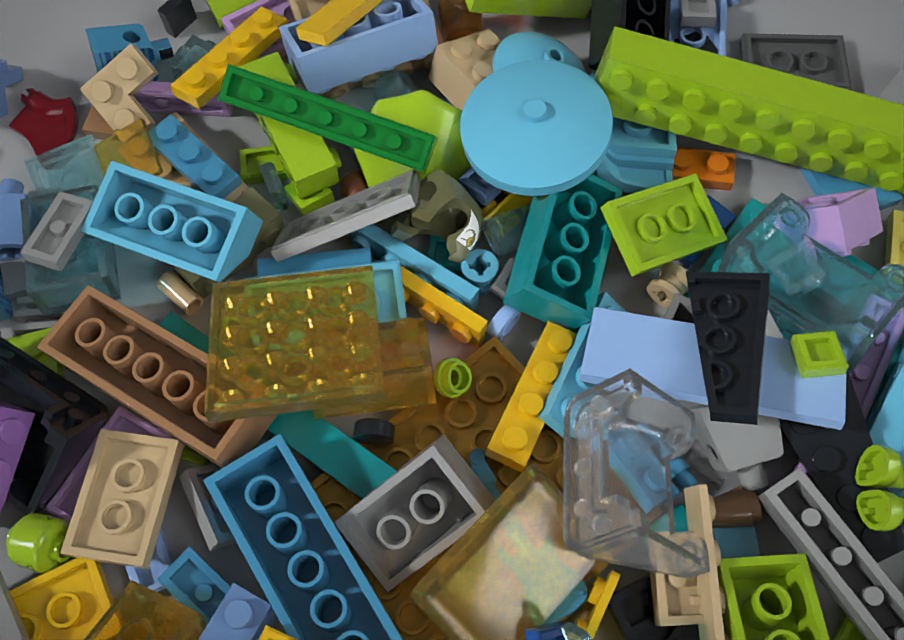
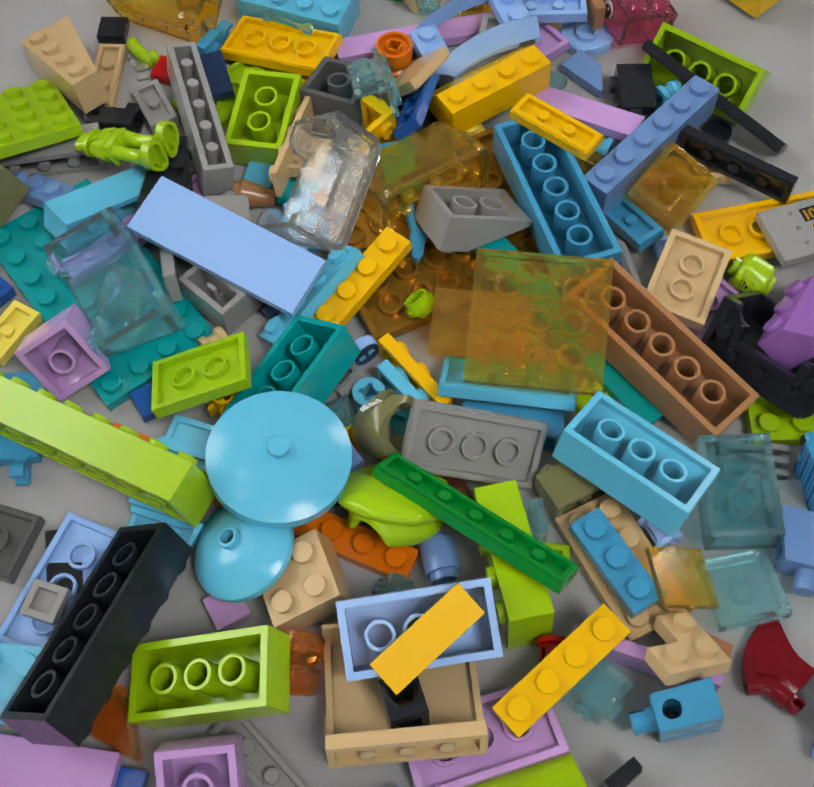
camera: 165 degrees left, 5 degrees down
(58, 232) = (740, 475): light grey plate -> none
(730, 337) = (204, 250): black wing -> none
(818, 354) = (150, 222): lime tile -> none

